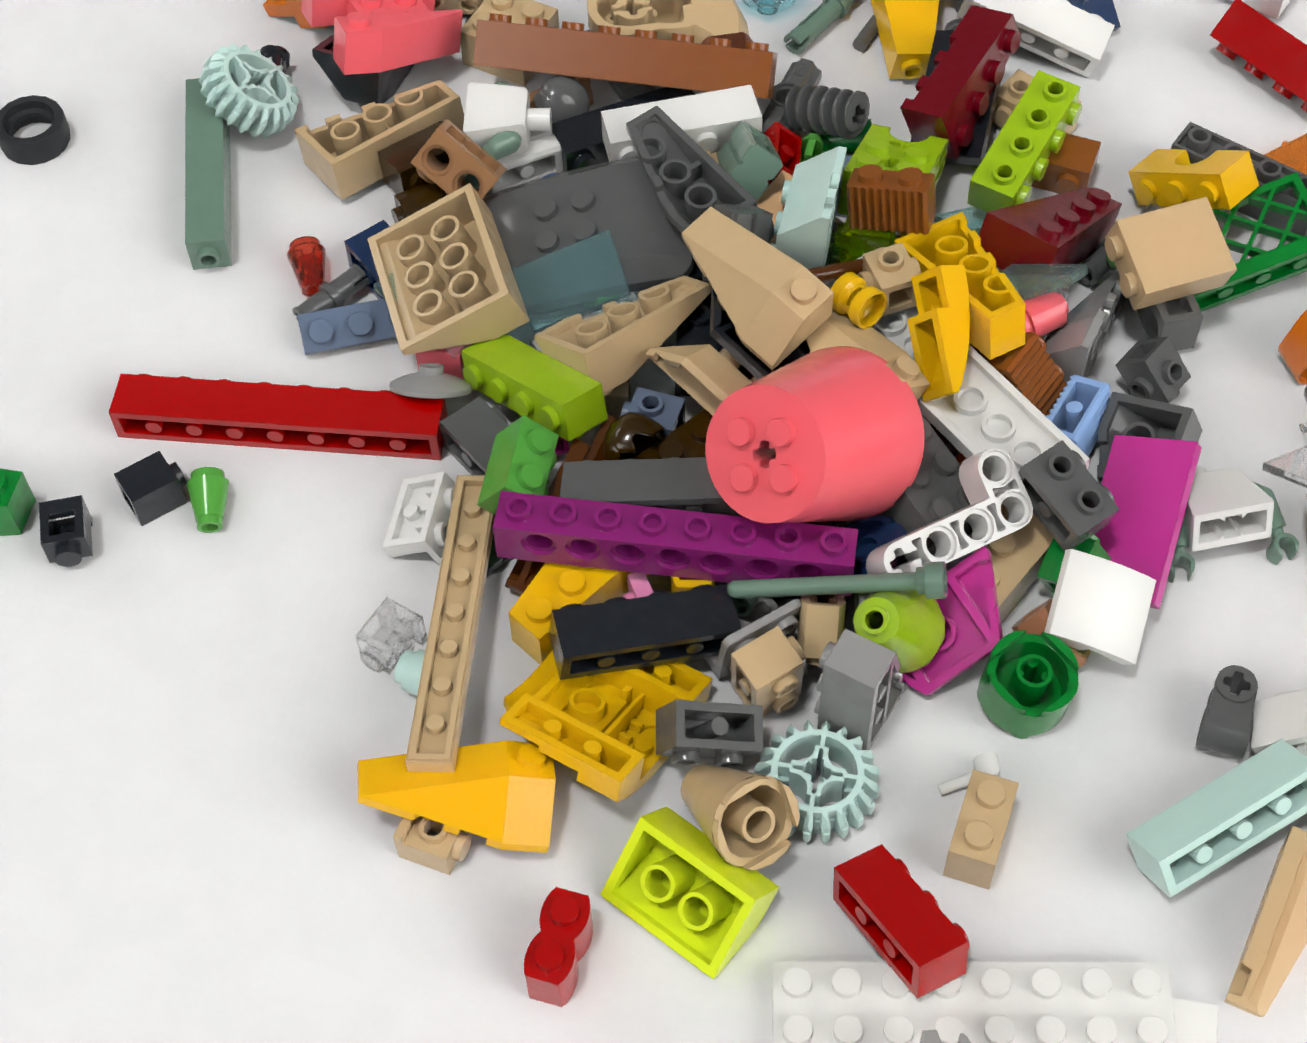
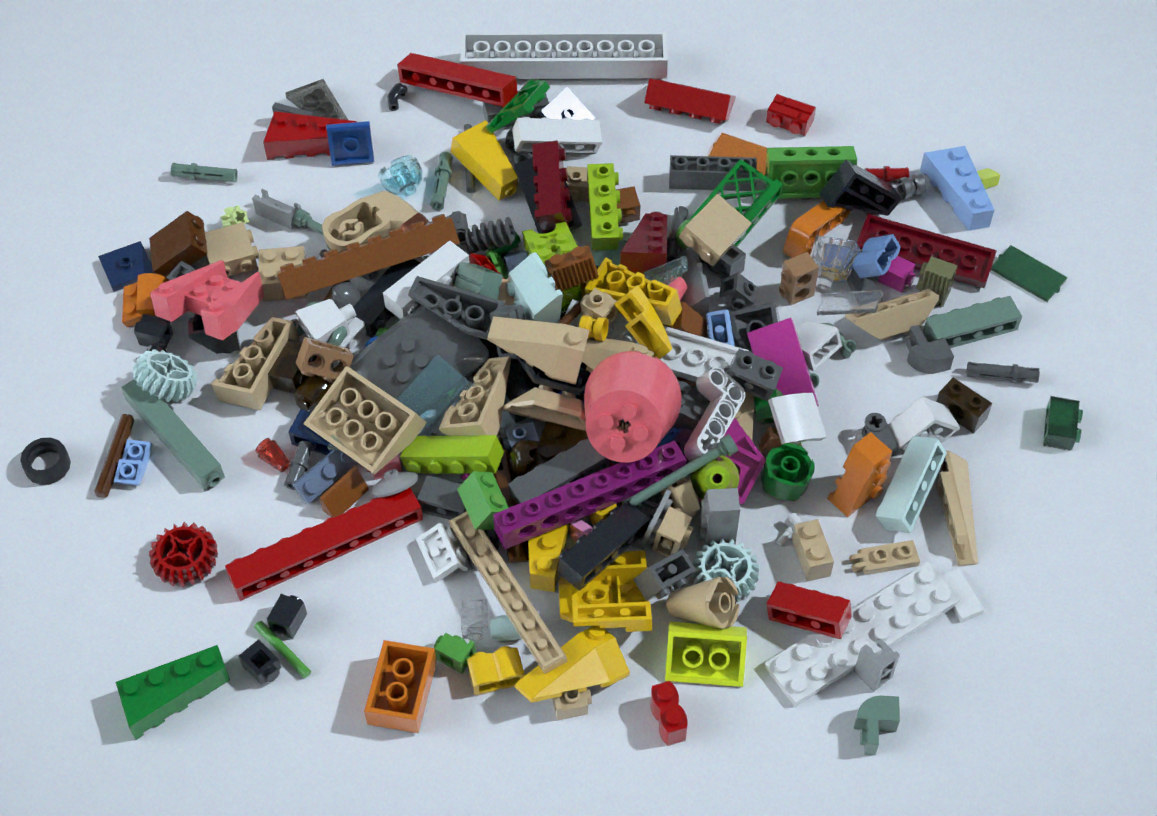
camera: 35 degrees left, 0 degrees up
(92, 334) = (176, 565): none -> red gear
(114, 533) = (279, 645): none -> bright green bar
(118, 166) = (114, 454): none -> reddish brown axle
(140, 185) = (134, 462): none -> light blue slope
(208, 497) = (321, 603): bright green cone -> none
(211, 671) = (400, 686): none -> orange brick
(291, 30) = (152, 329): none -> black brick
(328, 668) = (454, 651): none -> bright green brick
(358, 363) = (344, 493): none -> dark orange slope
(360, 727) = (495, 670): none -> yellow brick
(1102, 914) = (885, 558): none -> tan hinge
(1147, 754) = (863, 476): none -> orange wedge
(1171, 179) = (706, 183): yellow arch -> none
(1268, 397) = (798, 278): none -> medium nougat brick

